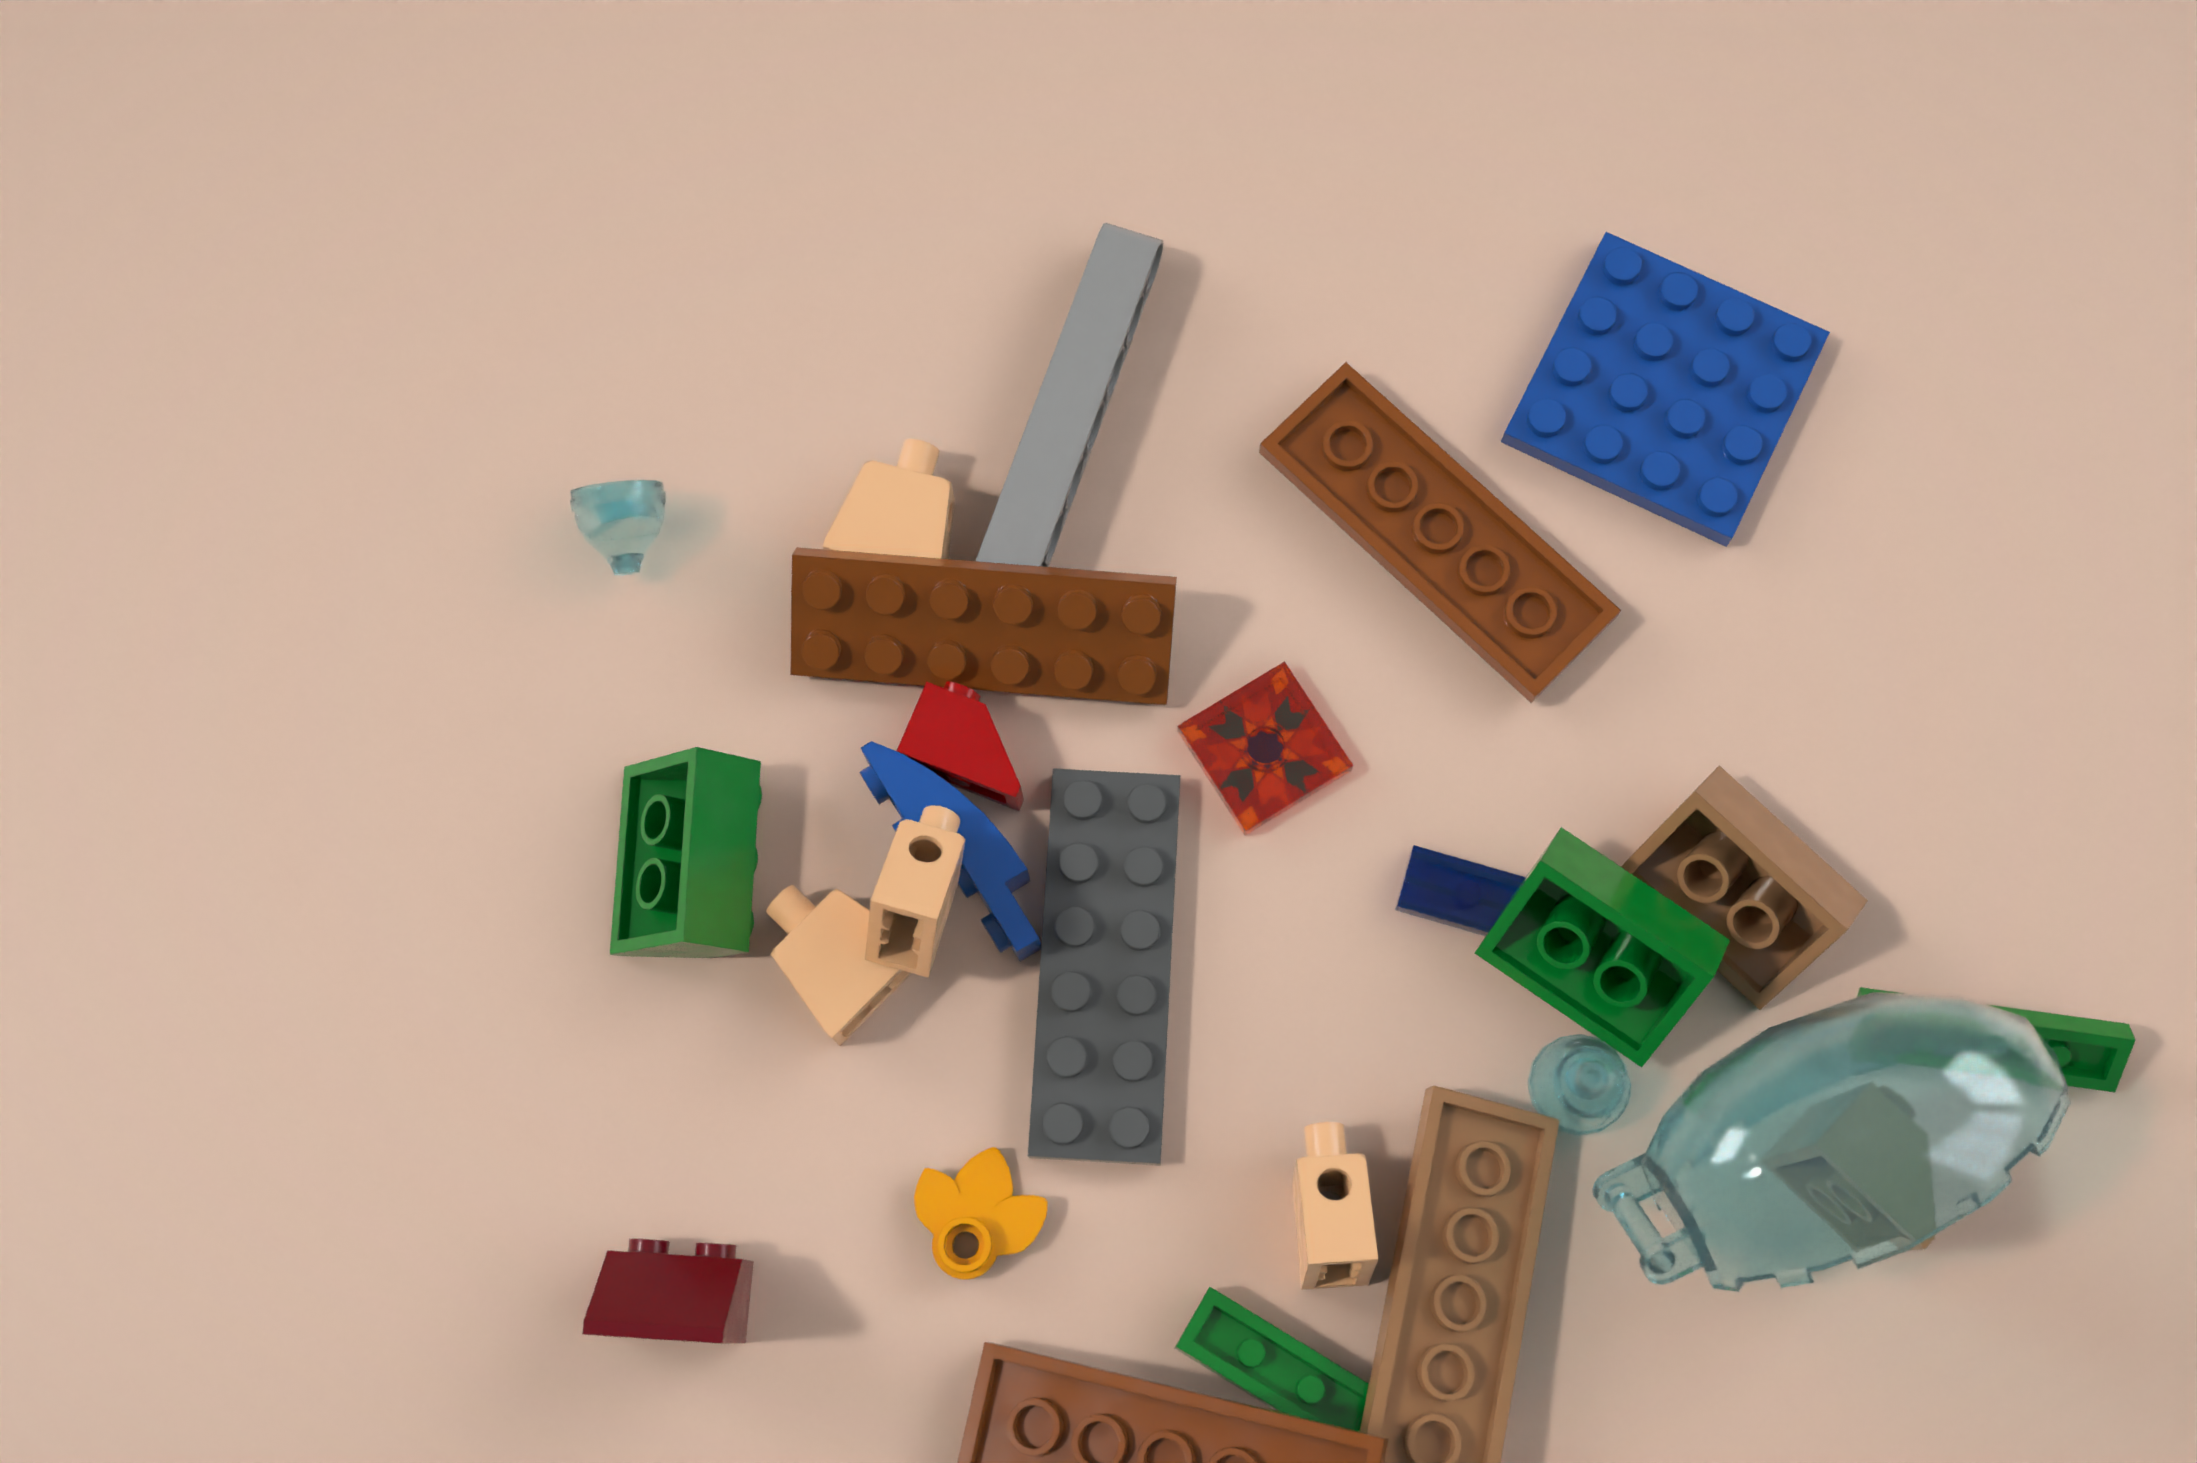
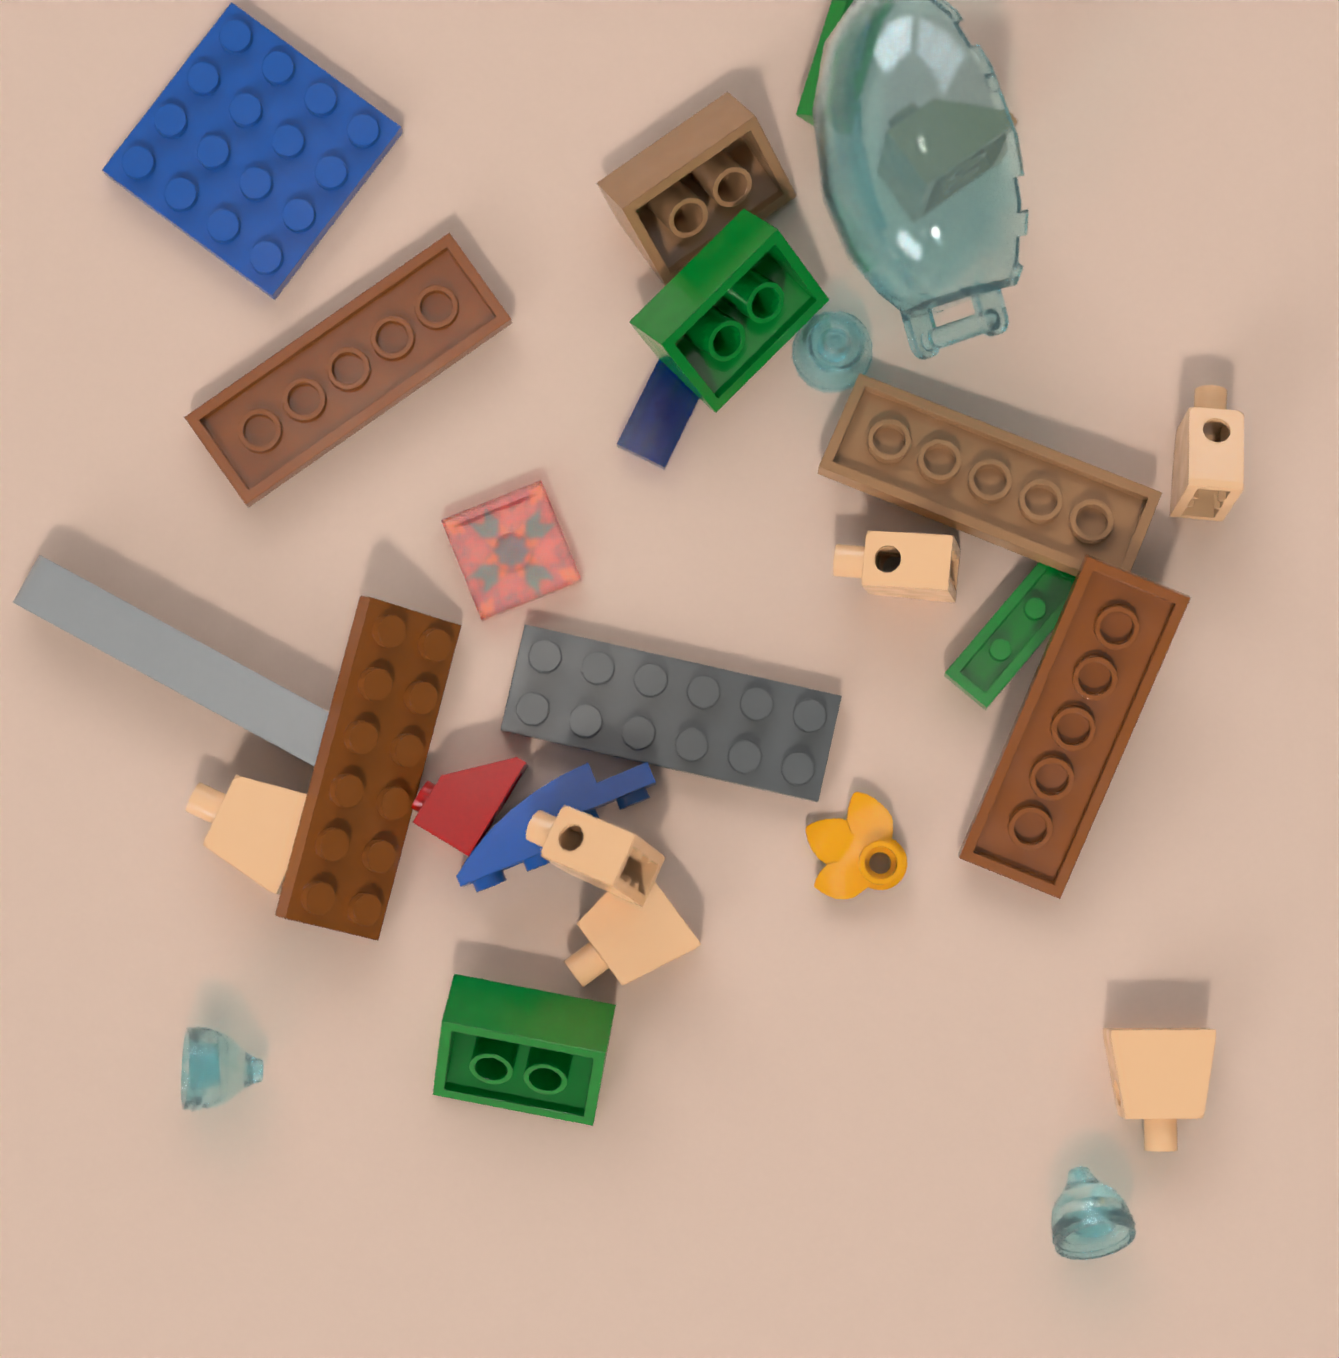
camera: 85 degrees left, 10 degrees up
(671, 1295) = (884, 1101): dark red slope -> none

